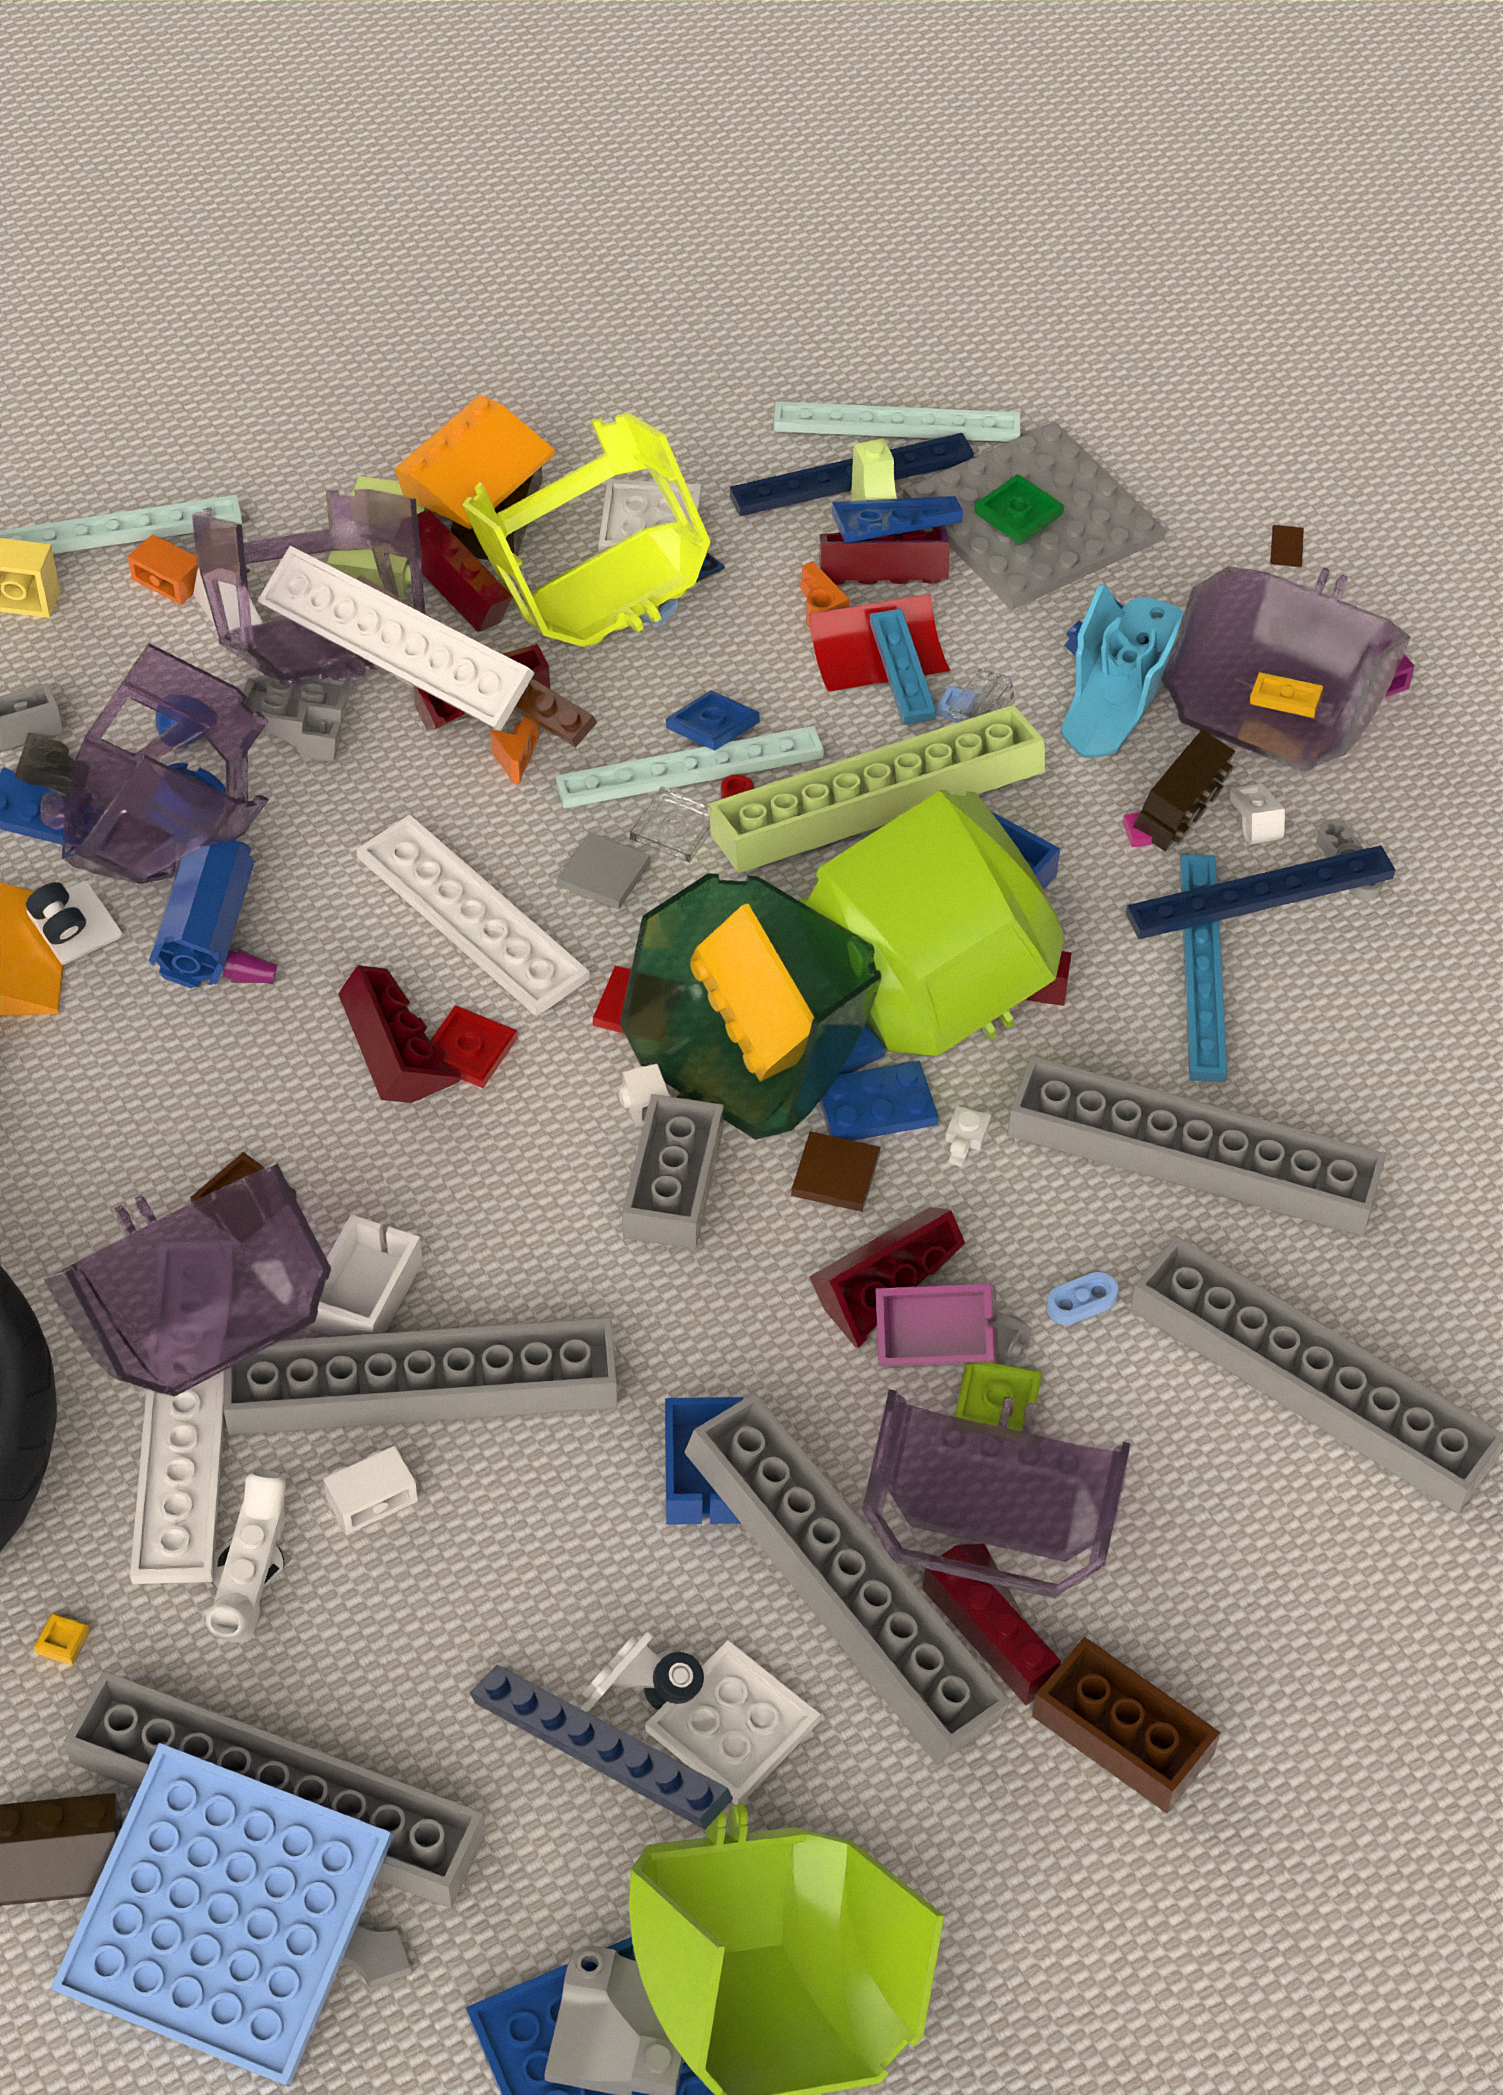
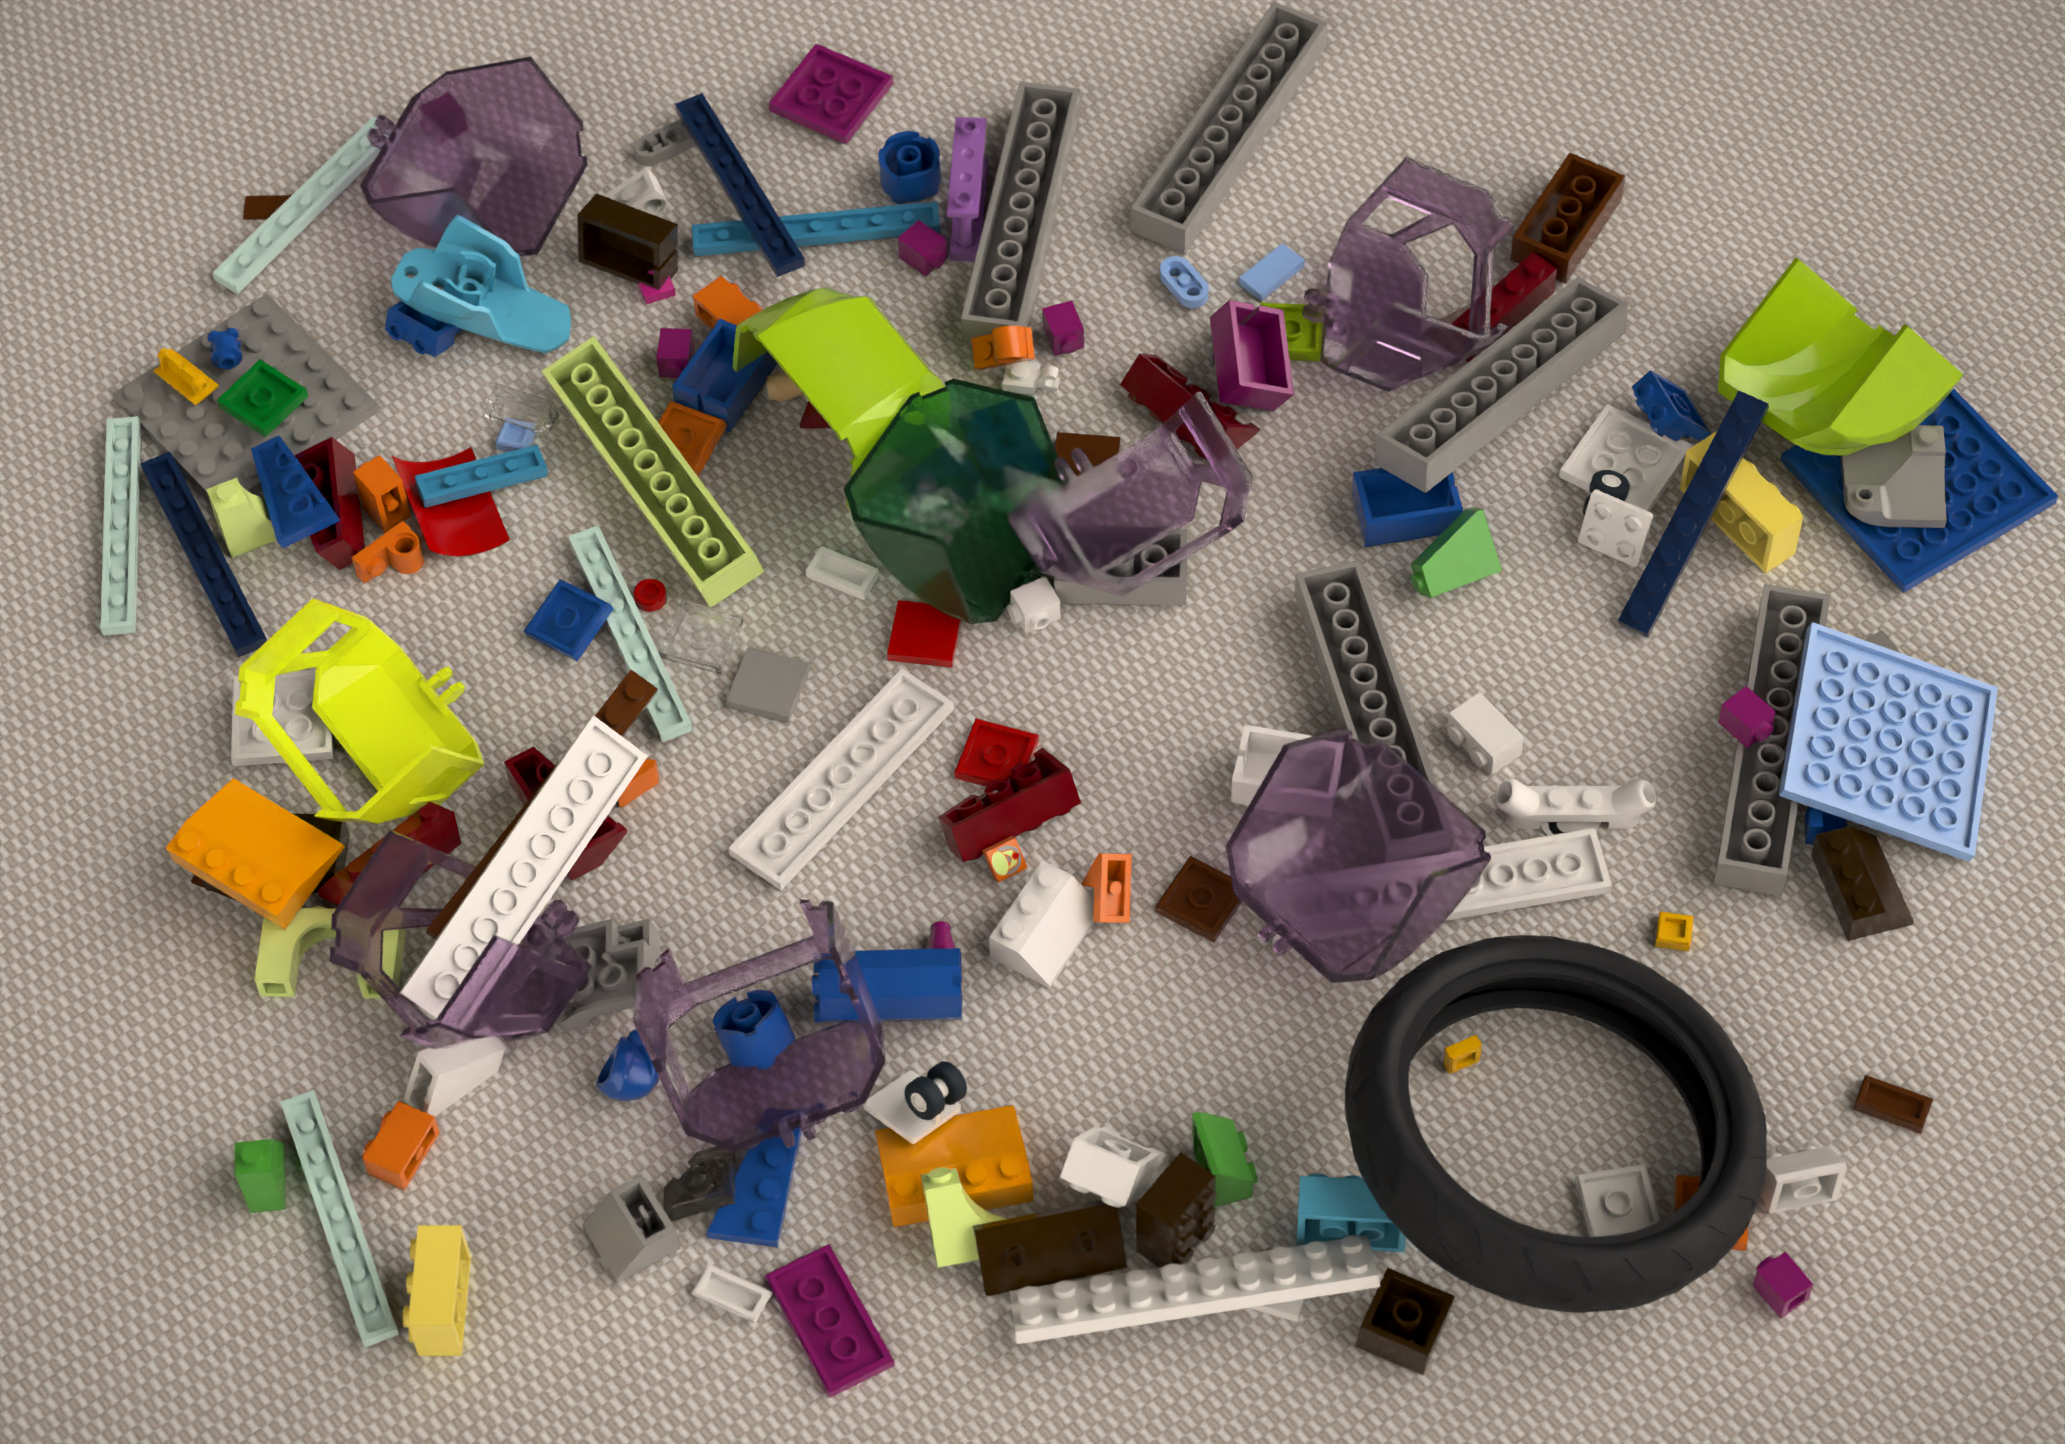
camera: 95 degrees left, 5 degrees up
(164, 469) = (262, 1174): none -> bright green slope
(246, 1052) = (1043, 925): none -> white slope
(261, 1105) = (1112, 887): none -> orange slope
(278, 1733) = (1747, 717): none -> magenta brick
(334, 1030) = (1004, 859): none -> tile
(606, 1836) = (1751, 511): none -> light yellow brick
(611, 1498) = (1456, 556): none -> bright green slope
(697, 1111) = (1132, 503): none -> clear purple windscreen
(753, 994) = (957, 491): yellow slope -> none
(790, 1778) = (1669, 408): none -> blue plate
(885, 577) = (382, 493): none -> orange brick
(989, 1096) = (1003, 347): none -> orange plate
(1025, 1169) = (1063, 328): none -> magenta brick
(1042, 821) = (674, 351): none -> magenta brick
(1057, 459) = (184, 376): none -> yellow hinge
(1082, 484) = (225, 348): none -> blue brick
(1089, 877) = (723, 302): none -> orange brick
(1091, 1394) = (1271, 272): none -> light blue tile
(1161, 1054) = (922, 248): none -> magenta brick
(1235, 1066) = (967, 188): none -> medium lavender fence
(1259, 548) = (298, 211): none -> light aqua plate
(1276, 1050) = (909, 167): none -> blue brick
(1286, 695) = (491, 182): yellow plate -> none
(1404, 999) = (831, 93): none -> magenta plate

